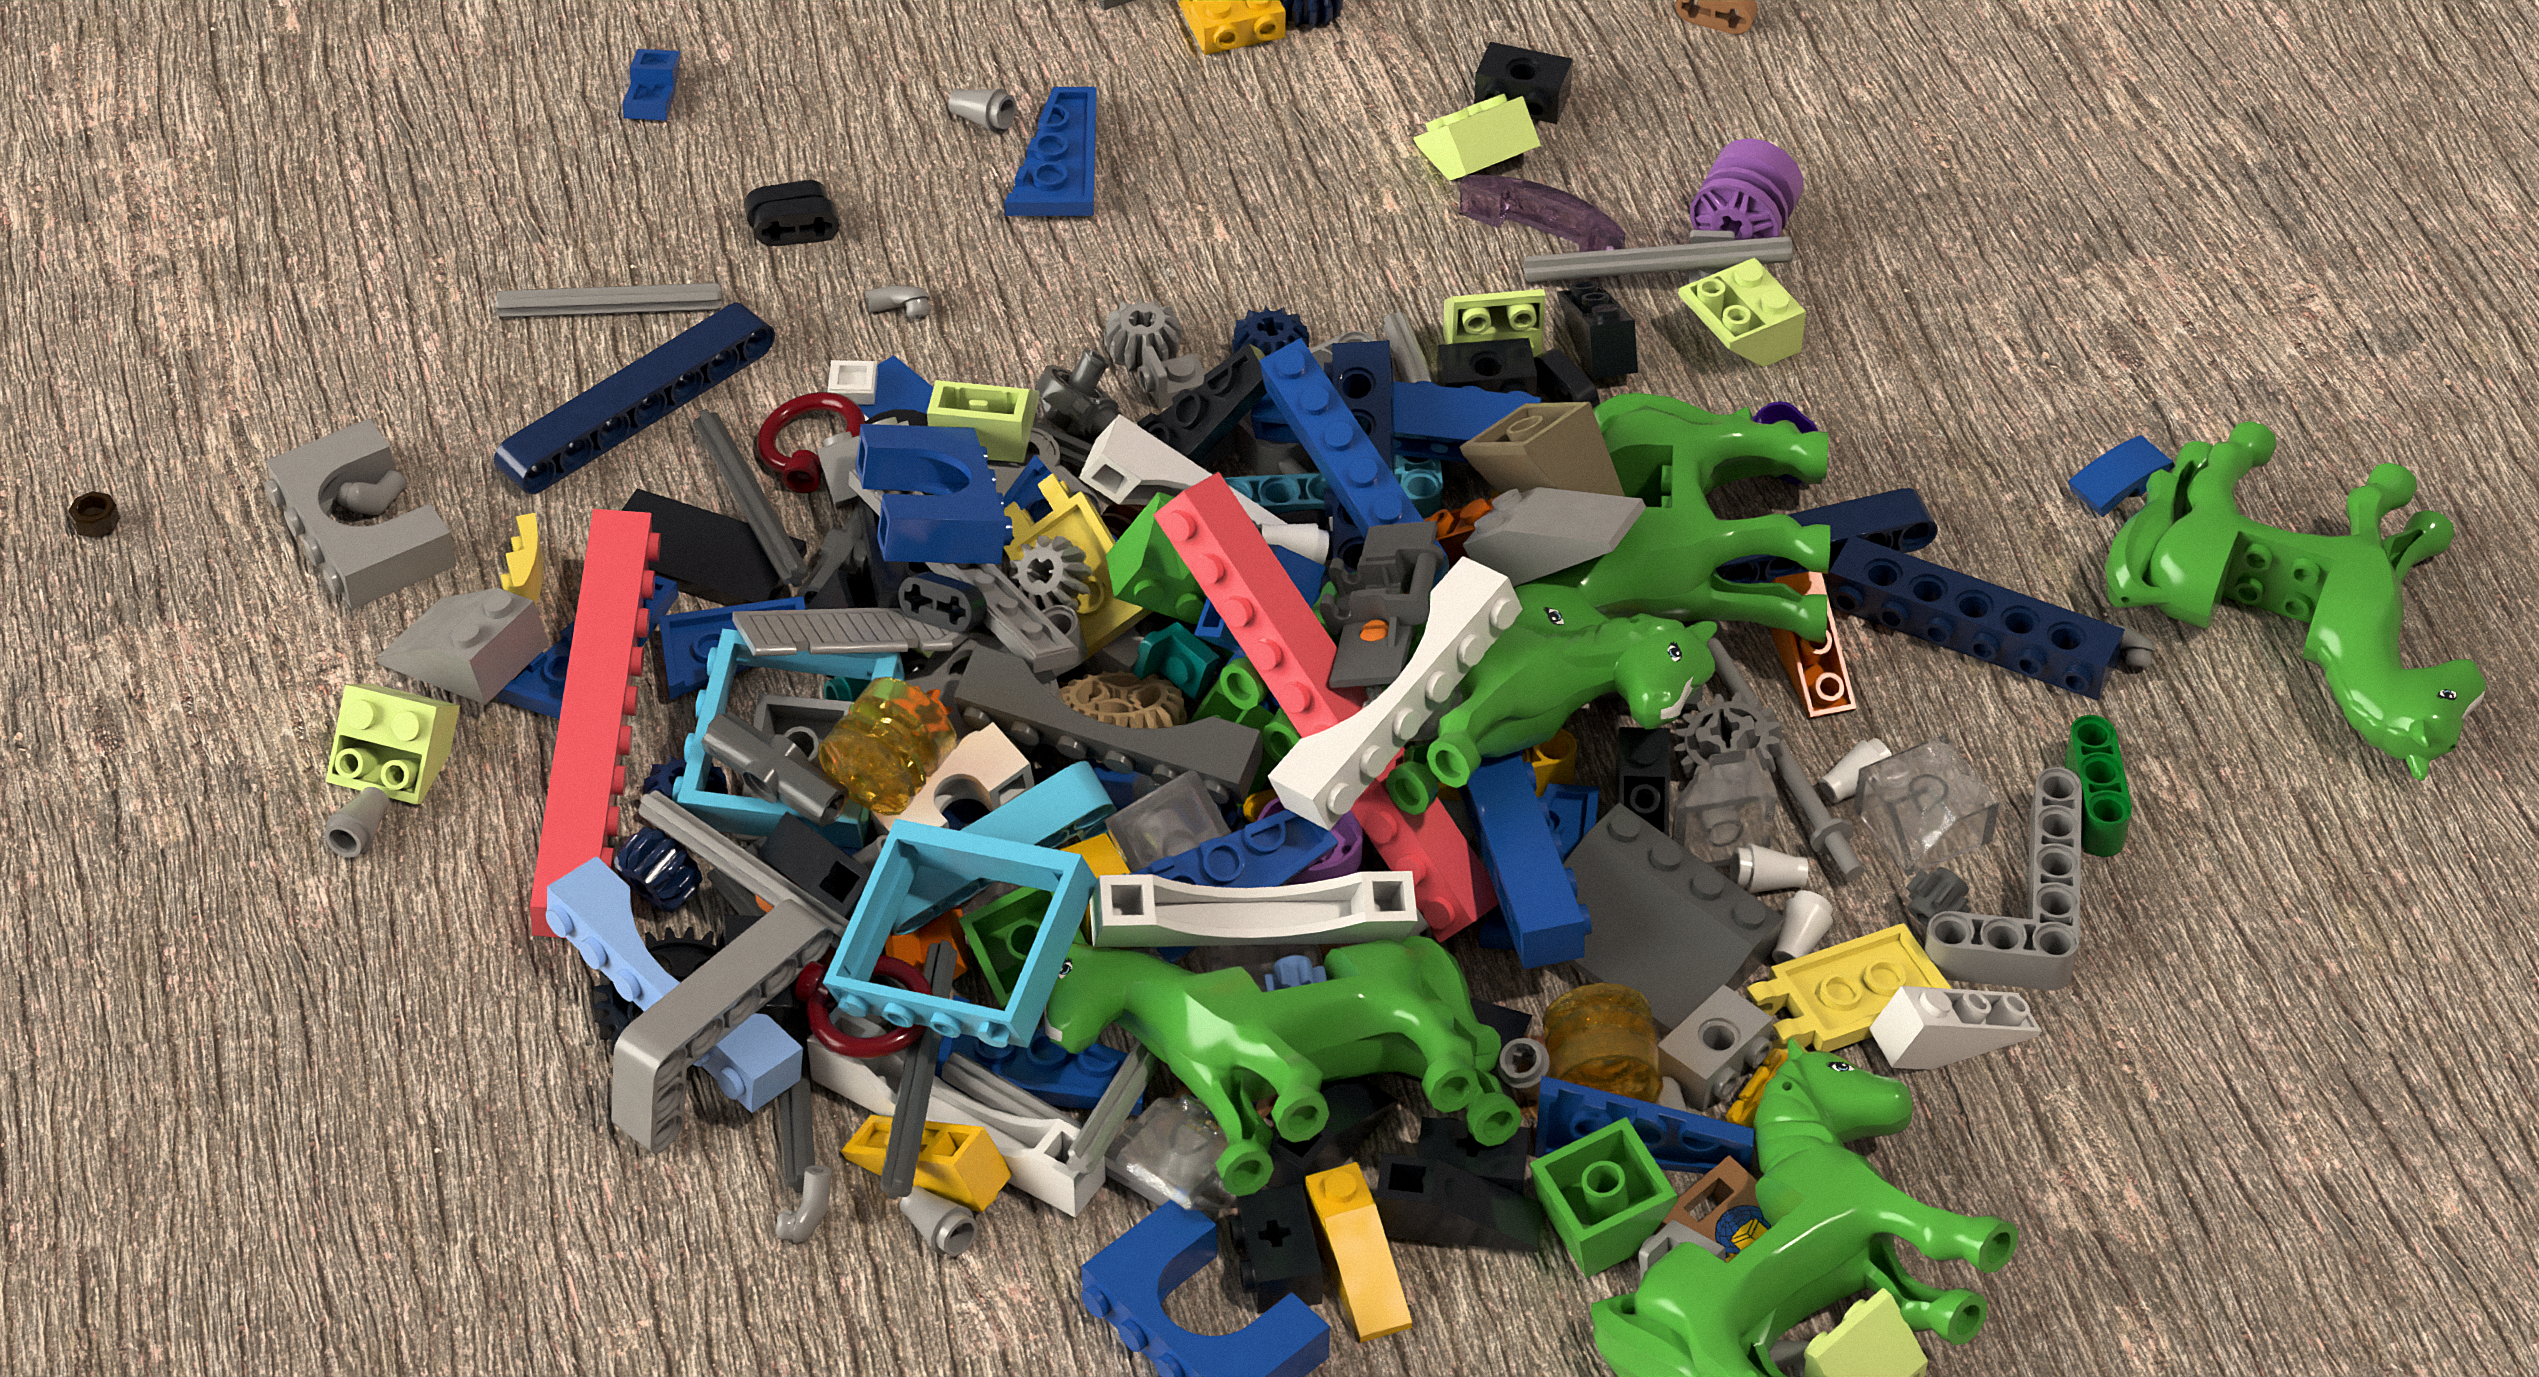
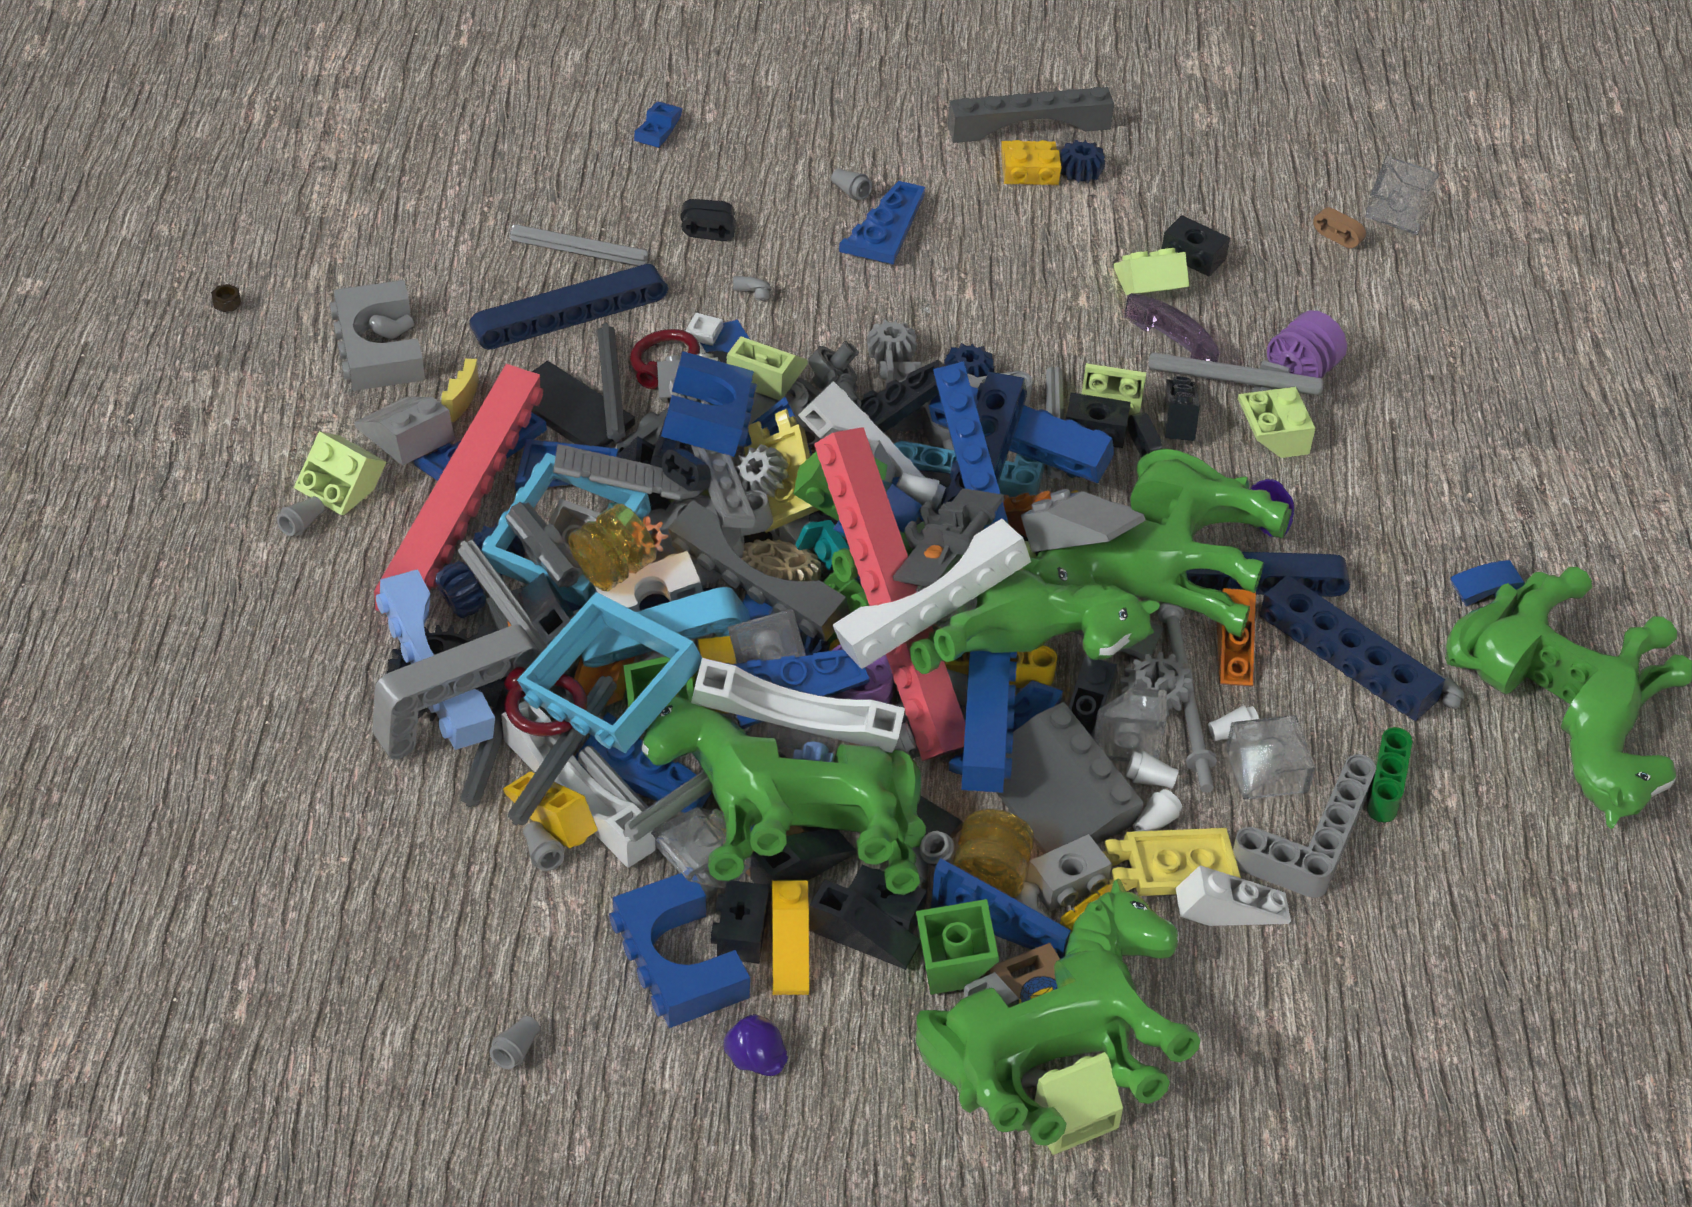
camera: 15 degrees right, 0 degrees up
(813, 1208) = (469, 819): light grey arm -> none
(1545, 448) = (1099, 469): dark tan slope -> none
(1936, 893) = (1253, 814): dark grey gear -> none

